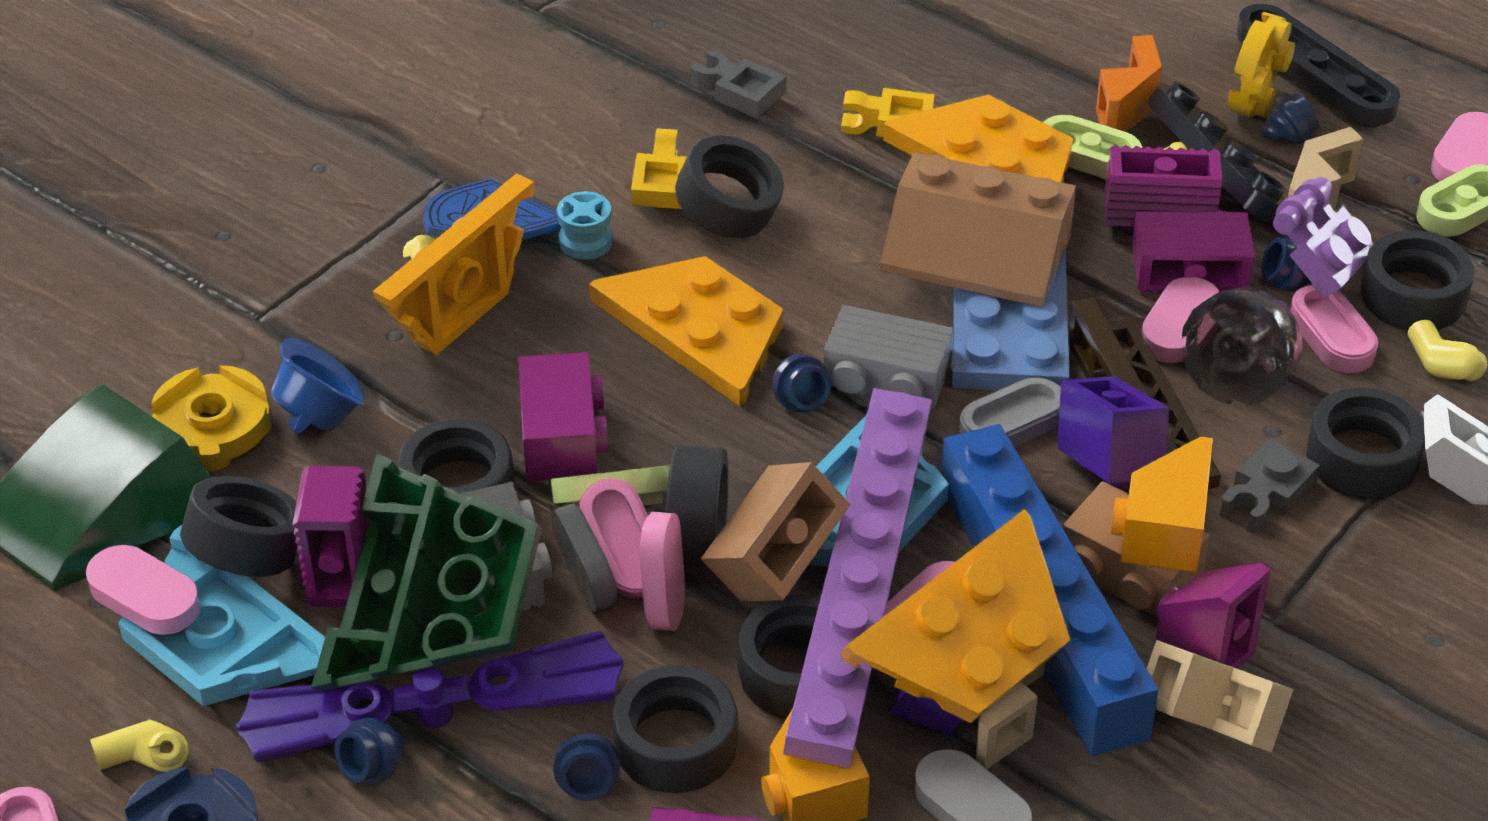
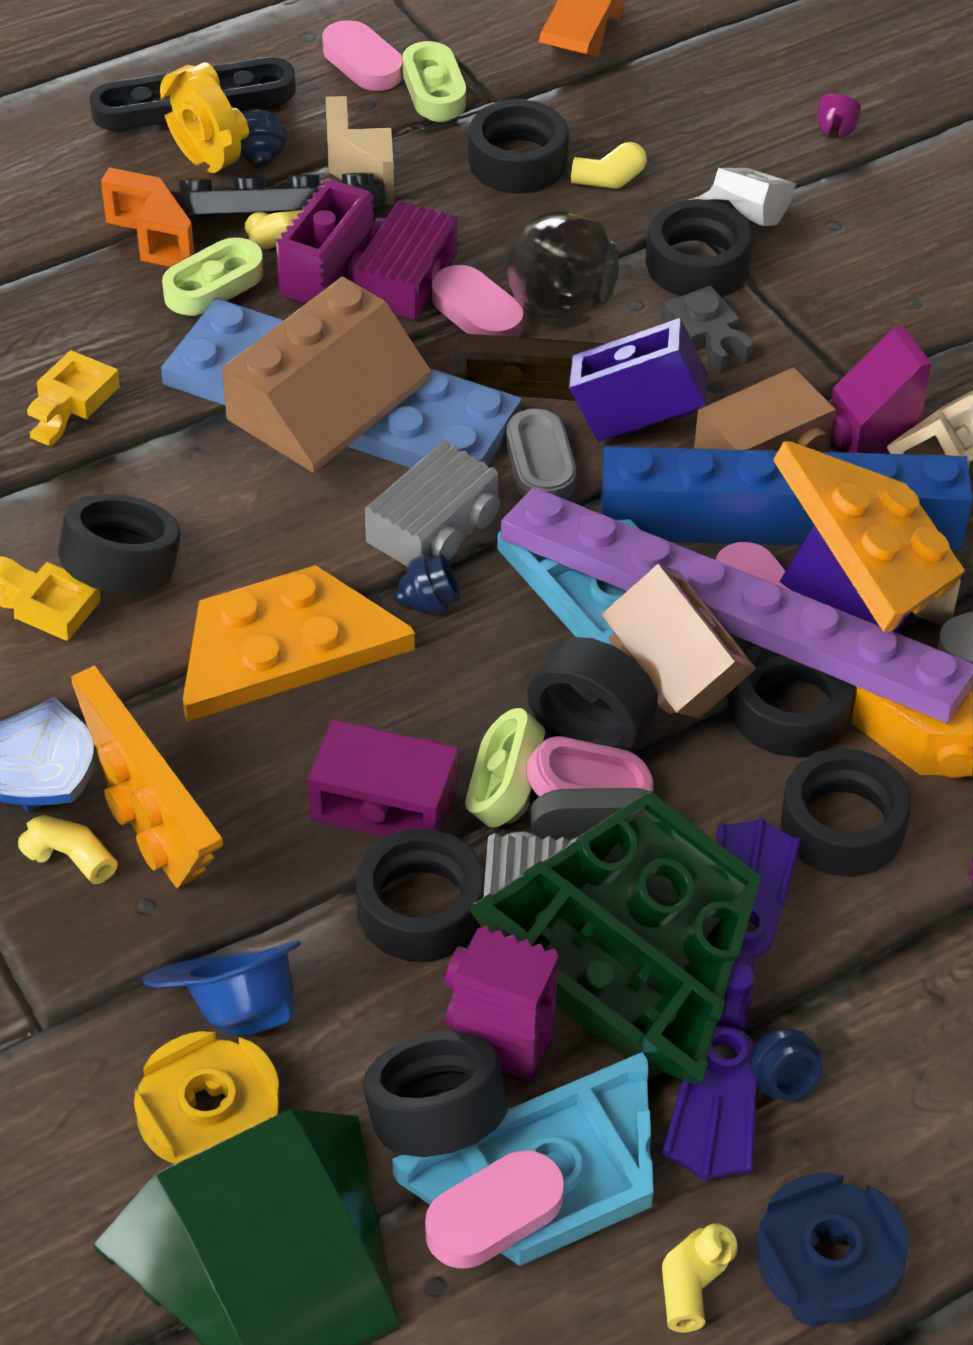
camera: 70 degrees left, 5 degrees up
(585, 225) = (81, 658): medium azure wheel -> none
(586, 766) = (867, 891): dark blue plate -> none
(662, 571) = (672, 748): bright pink tile -> none
(984, 134) = (189, 334): light orange wing -> none
(1166, 509) = (779, 367): light orange slope -> none
(1280, 267) = (457, 200): dark blue plate -> none
(1327, 241) = (455, 166): medium lavender plate -> none
(1334, 330) = (511, 212): bright pink tile -> none

